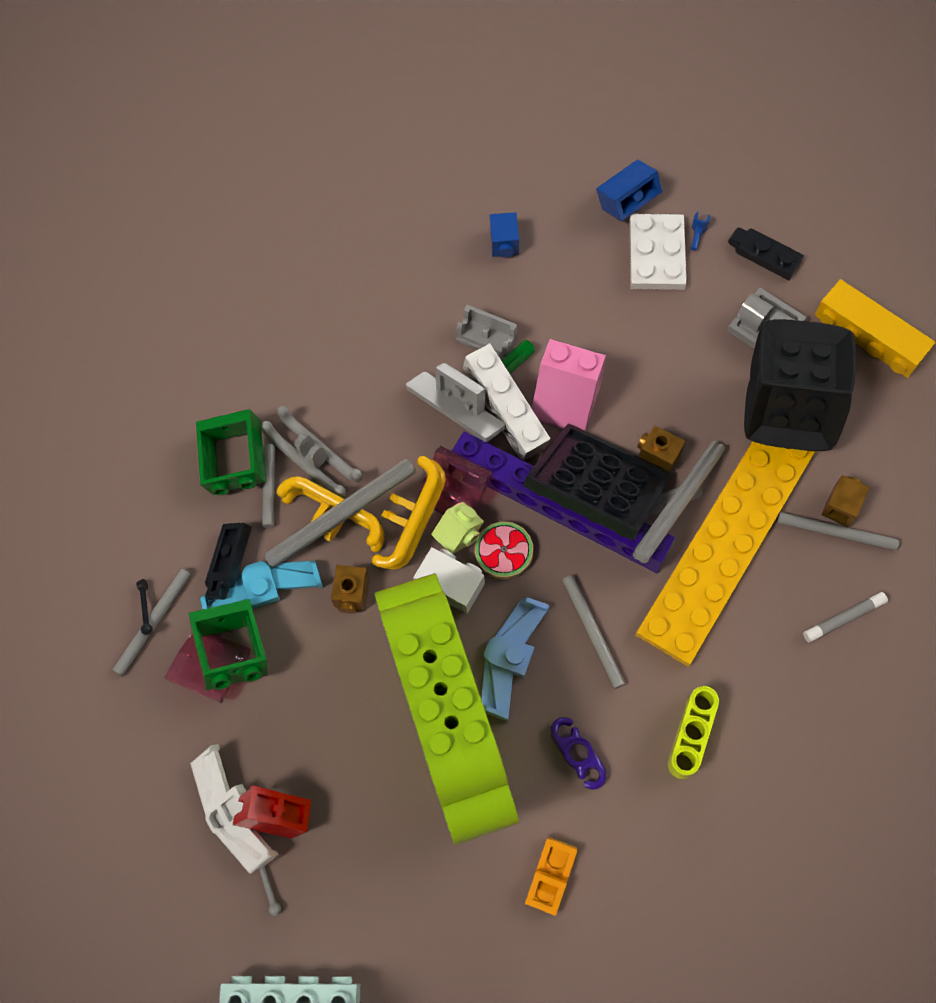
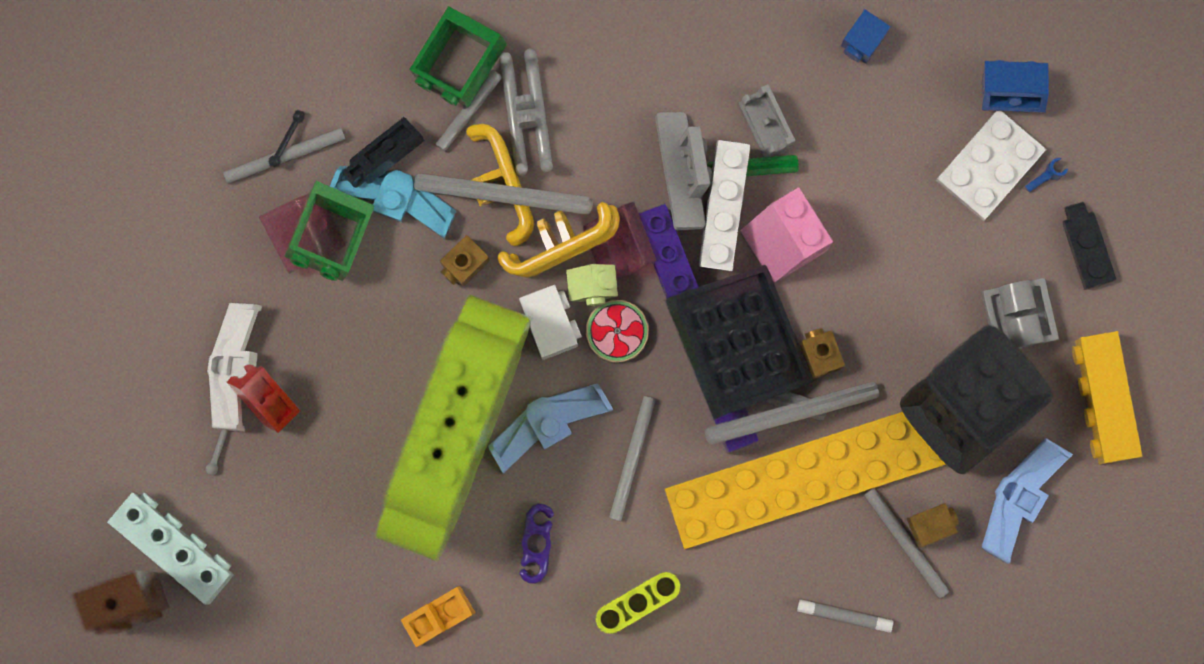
camera: 35 degrees right, 15 degrees up
(885, 437) = (1020, 498): none -> light blue plate

